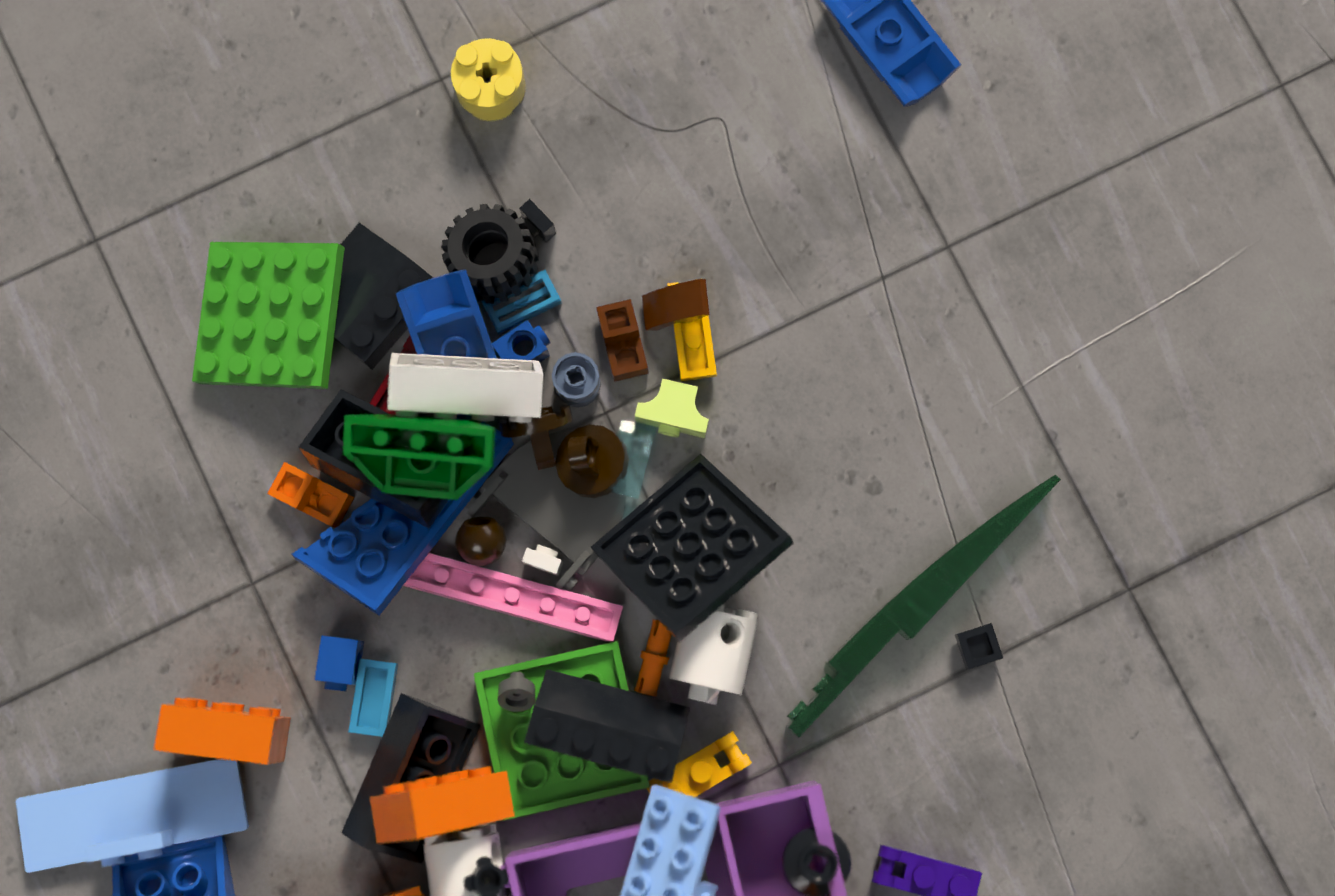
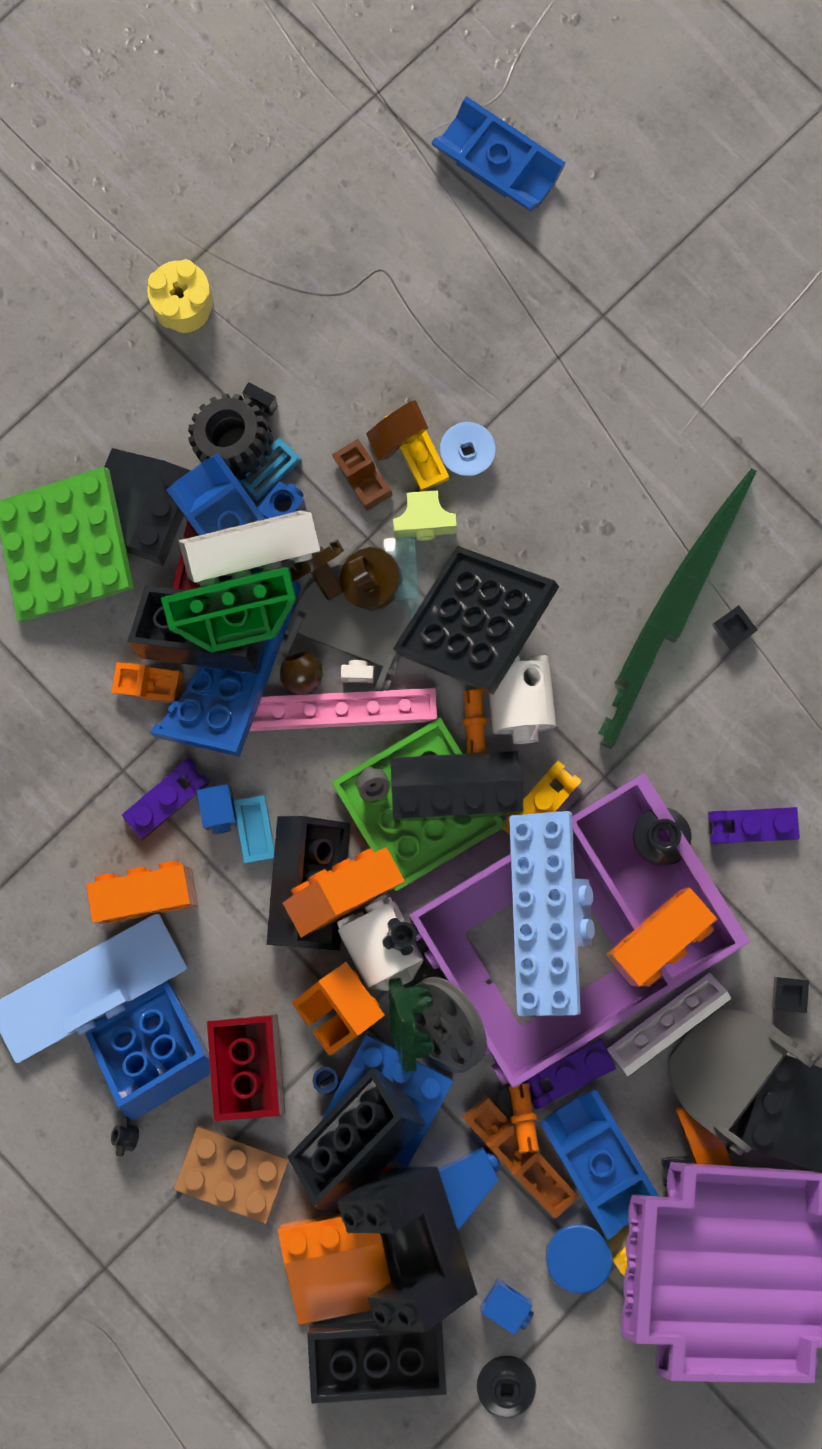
camera: 15 degrees left, 0 degrees up
(286, 631) = (165, 799): none -> dark purple plate
(576, 379) = (336, 517): sand blue wheel -> none
(747, 333) = (466, 435): none -> light blue piece

